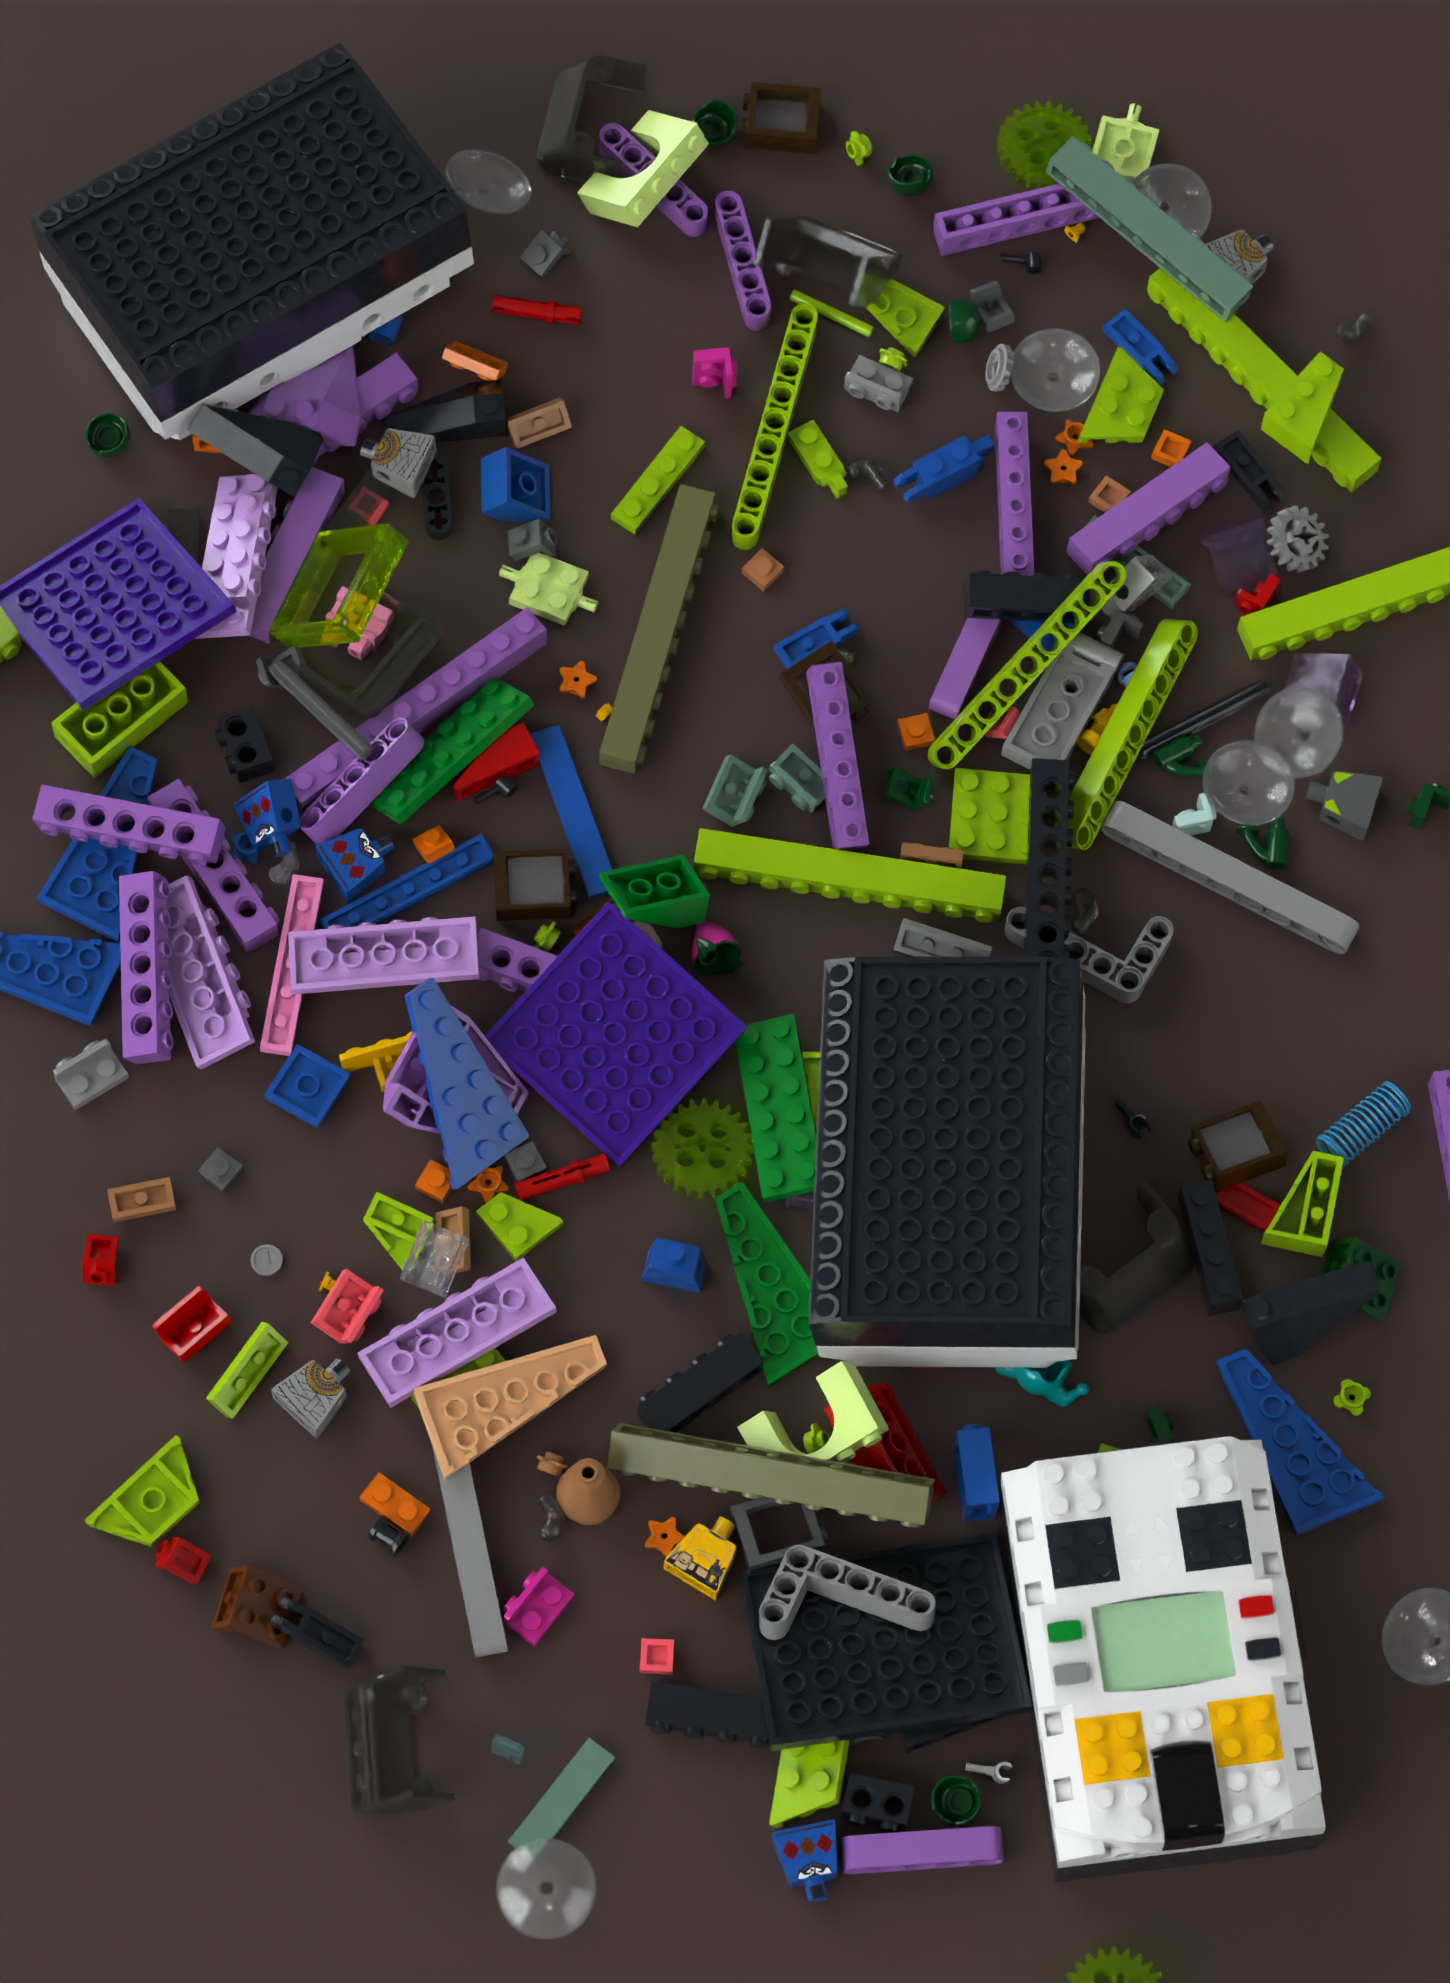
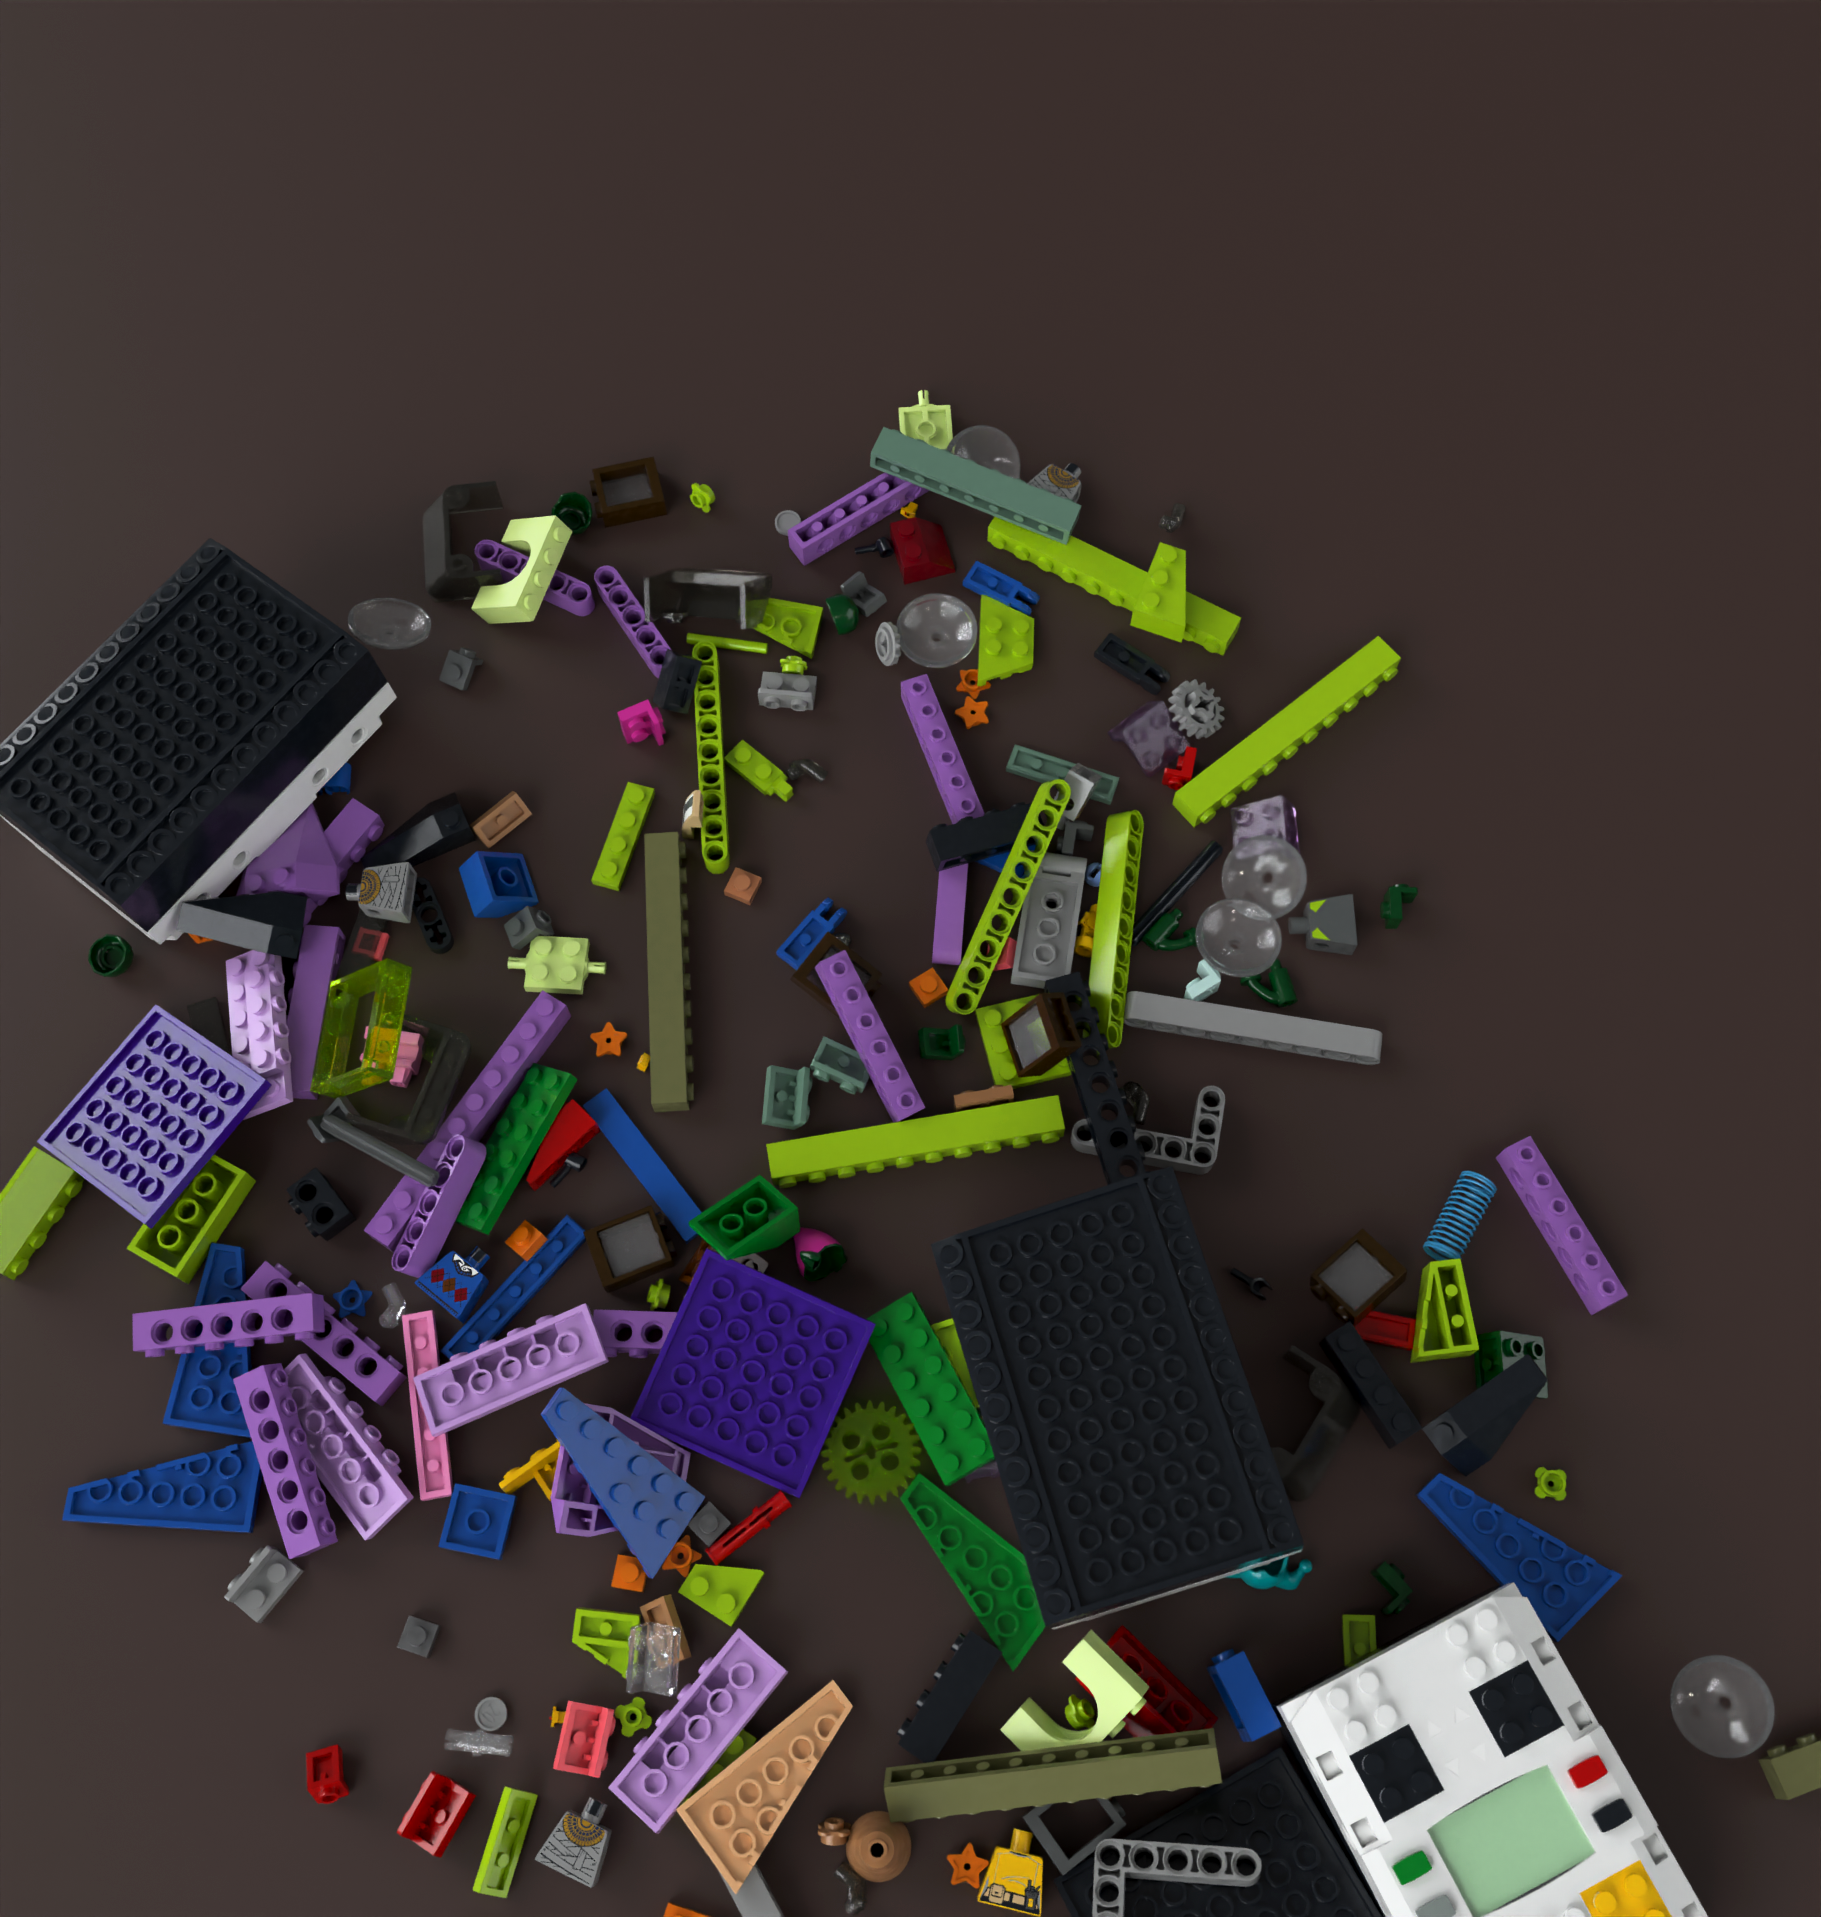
camera: 15 degrees left, 0 degrees up
(141, 1199) = (349, 1696): medium nougat plate -> none
(248, 1279) = (478, 1742): none -> clear pin
(270, 815) = (363, 1267): blue torso -> none
(402, 1313) = (642, 1719): none -> lime plate
(467, 357) = (417, 782): orange plate -> none
(540, 310) = (464, 721): red pin -> none
(675, 1265) = (884, 1581): blue torso -> none
(735, 480) = (692, 814): none -> tan slope
(765, 338) = (677, 681): none -> black hinge
(910, 174) = (754, 505): dark green hair -> none
(928, 941) = (1024, 1180): light grey plate -> none
(939, 201) = (786, 520): none -> light grey piece
(945, 468) = (872, 744): blue hinge -> none
(1008, 809) = (1041, 1034): none -> dark brown window
(1042, 141) = (856, 445): clear neon green gear -> none
(1071, 278) = (920, 549): none -> dark red slope
(1108, 494) = (1021, 724): nougat plate -> none
(1149, 509) = (1060, 725): medium lavender brick -> none
(1170, 448) = (1059, 667): orange plate -> none

